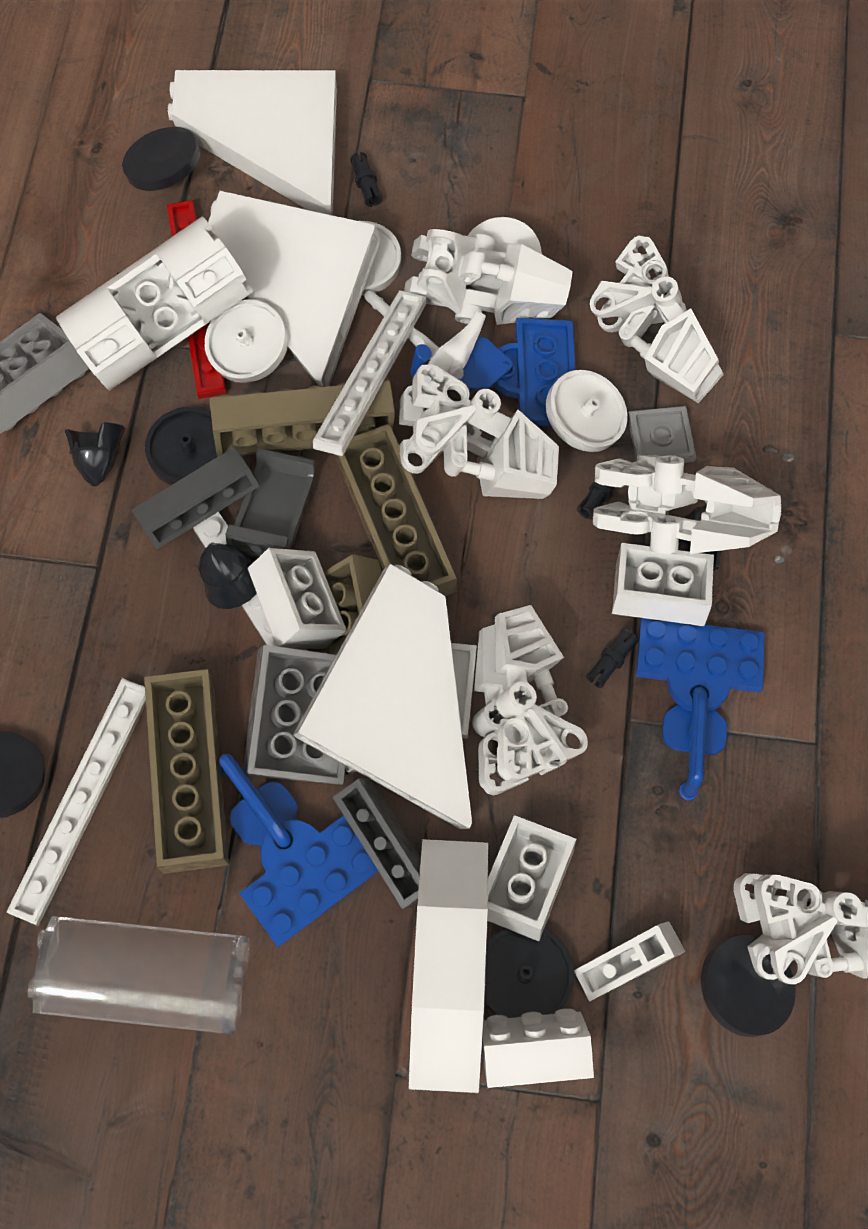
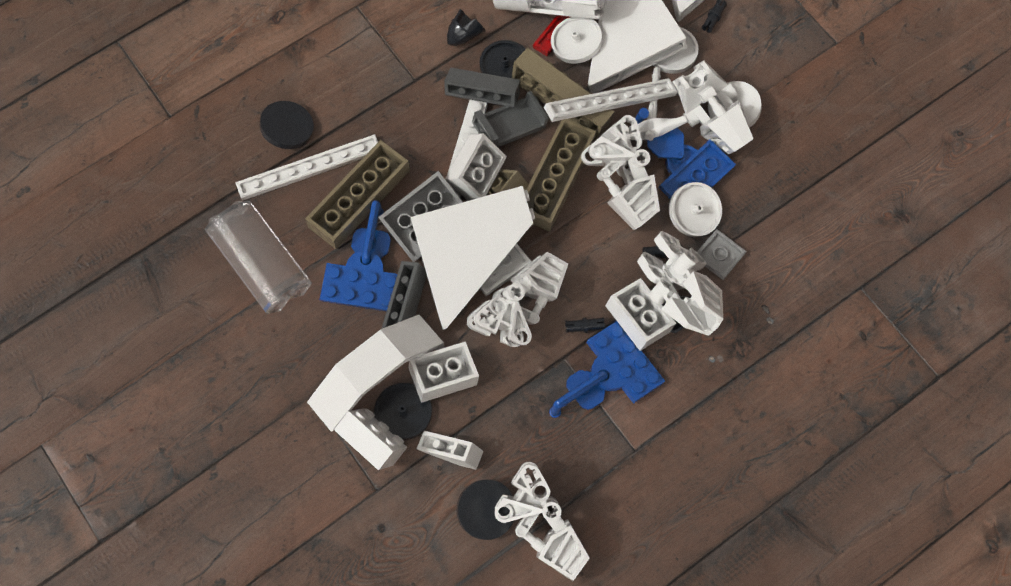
camera: 45 degrees right, 0 degrees up
(226, 576) = (458, 129): black helmet -> none
(680, 349) = (767, 220): white piece -> none

